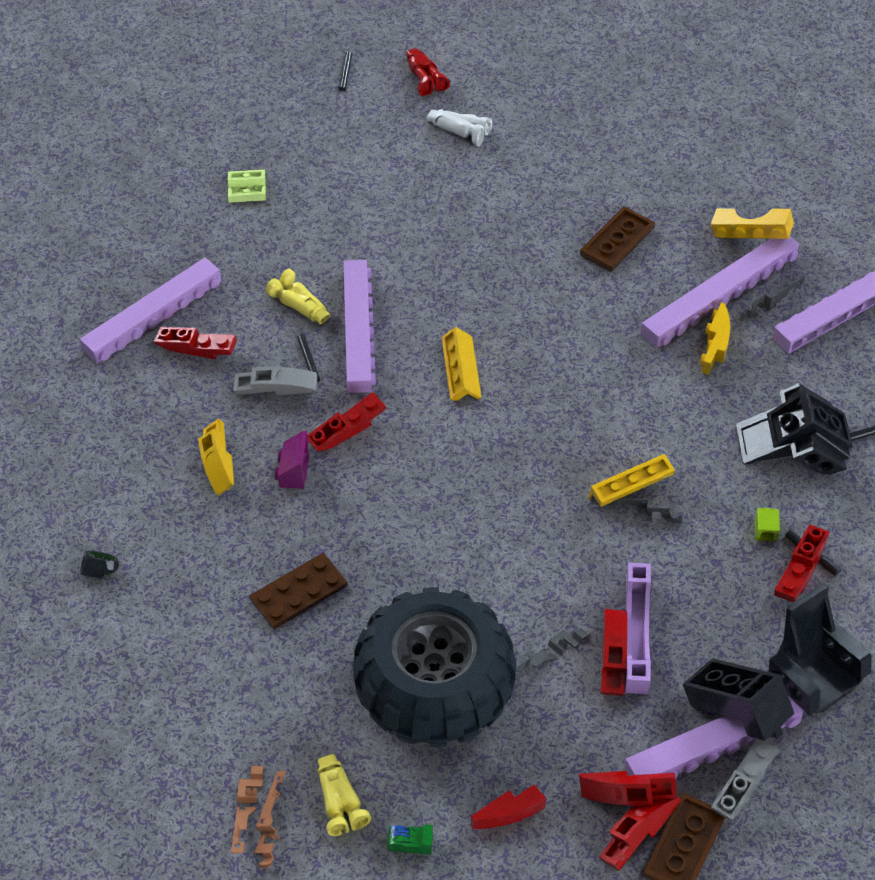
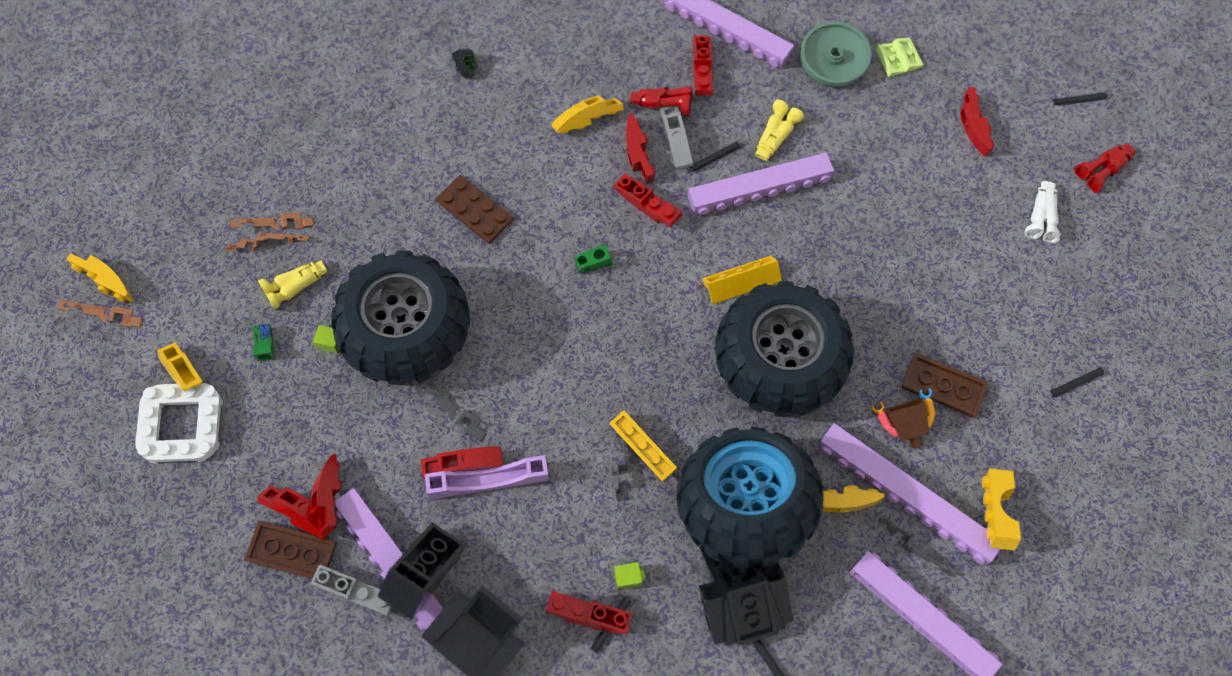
camera: 75 degrees right, 15 degrees up
(219, 392) = (664, 97): none -> red piece
(227, 229) = (835, 53): none -> sand green dish
(269, 421) = (636, 149): none -> red slope
(293, 462) = (593, 172): magenta slope -> none
(350, 148) = (975, 126): none -> red slope
(401, 485) = (593, 259): none -> green leg
(427, 764) = (325, 339): none -> lime brick
(509, 809) = (300, 408): red slope -> none
(561, 334) = (774, 386): none -> black wheel
(635, 150) = (1077, 382): none -> black bar
(650, 268) = (909, 419): none -> reddish brown torso
(717, 387) = (752, 468): none -> black wheel

